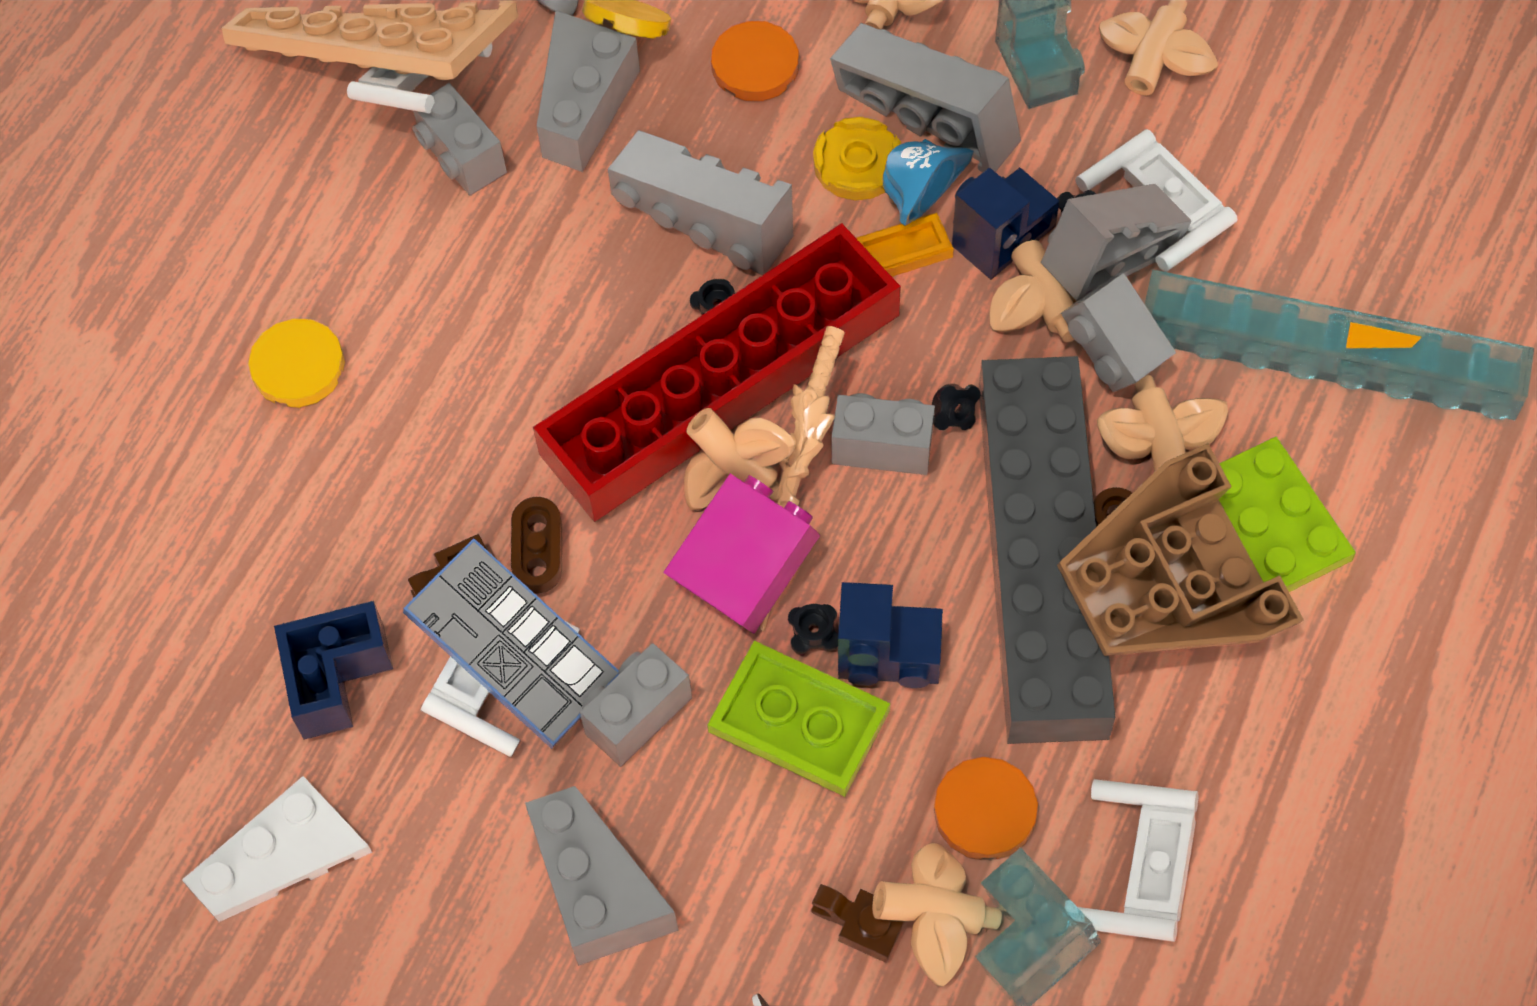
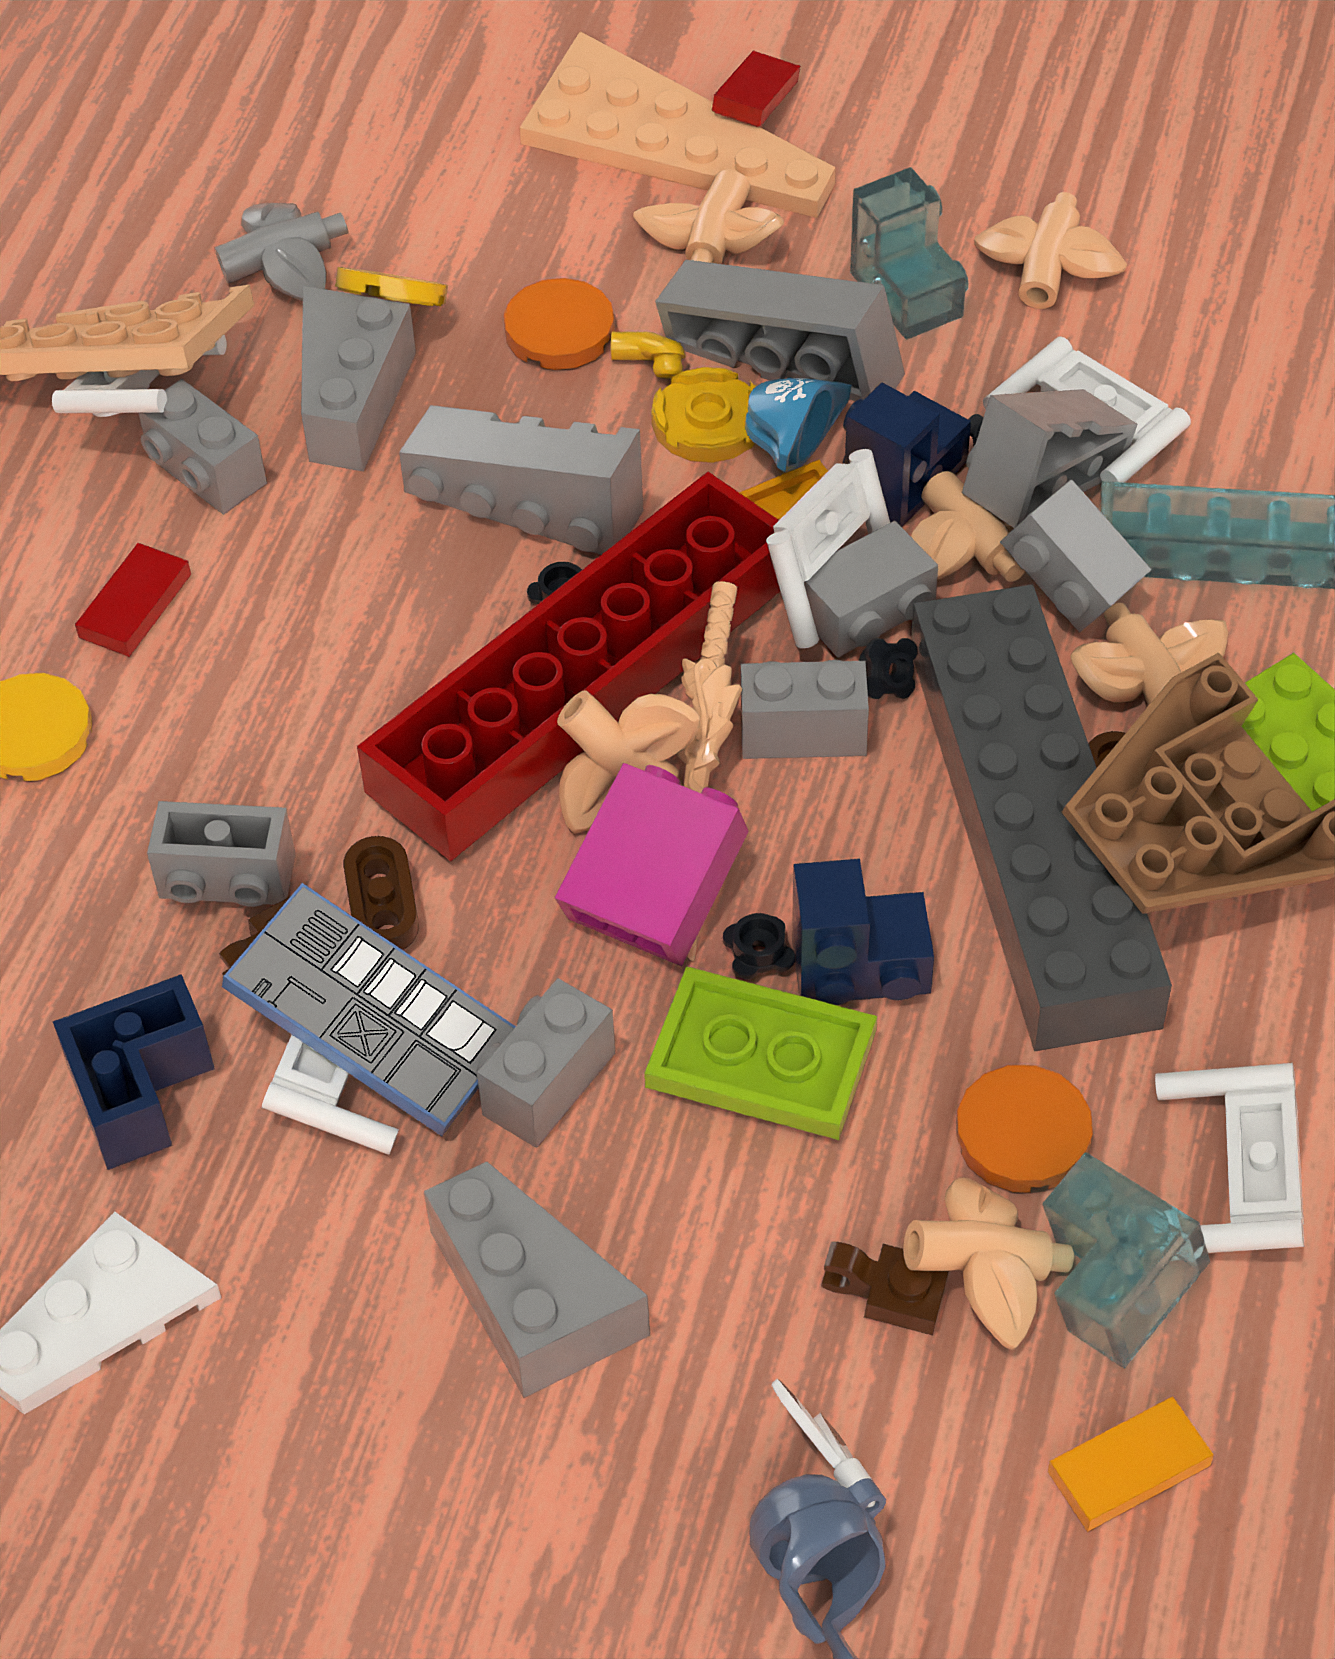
camera: 10 degrees left, 10 degrees down
(389, 263) = (133, 599): none -> red tile
(421, 497) = (221, 853): none -> light grey brick
(821, 91) = (649, 346): none -> yellow arm
(920, 285) = (818, 528): none -> white plate
(950, 337) = (870, 588): none -> light grey brick

